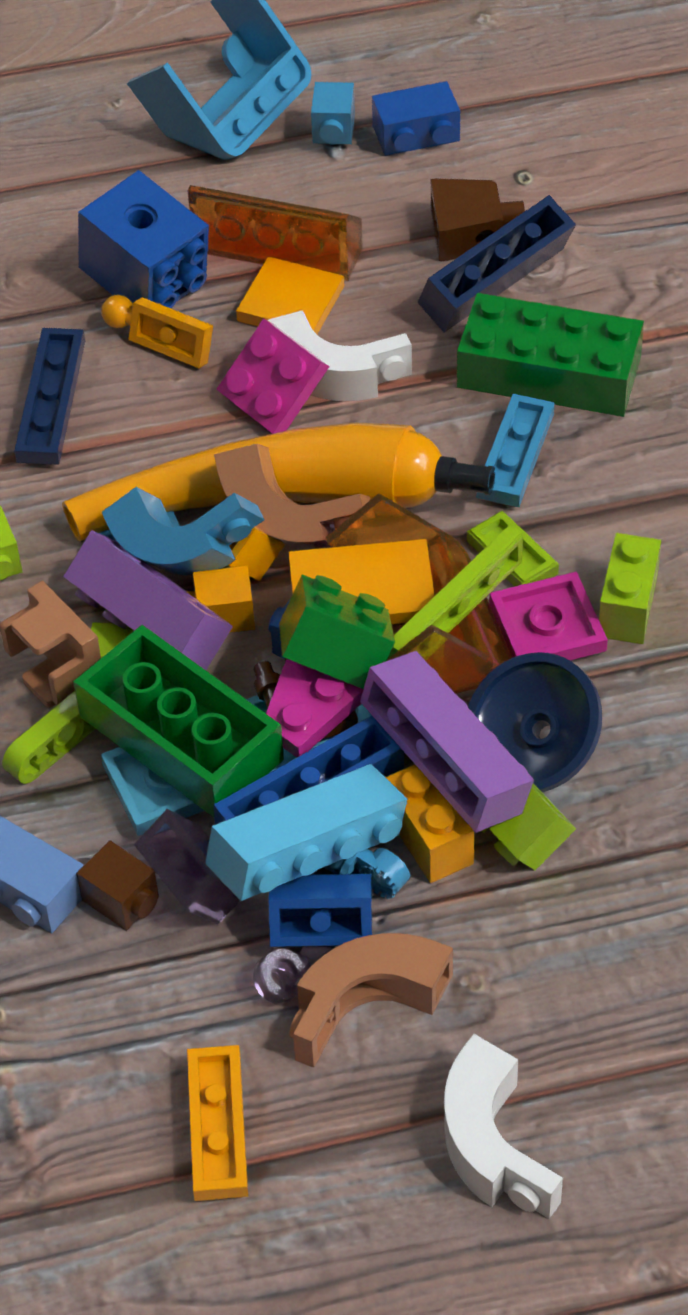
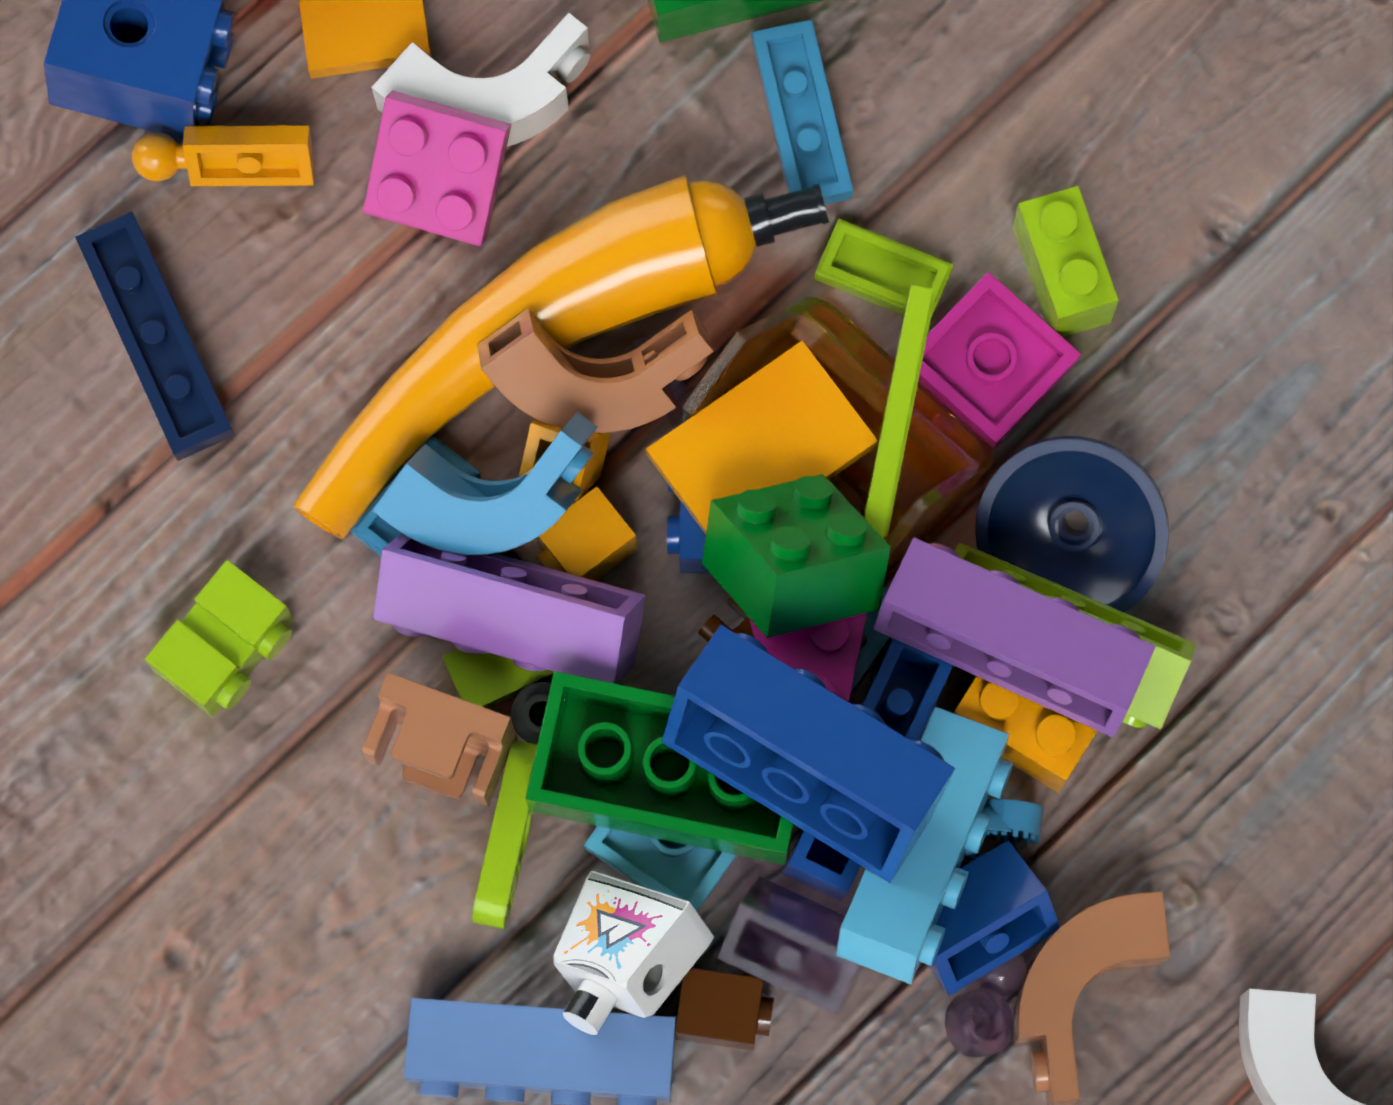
camera: 30 degrees left, 25 degrees up
(79, 811) = (625, 949): none -> white torso
(256, 711) = (806, 752): none -> blue brick

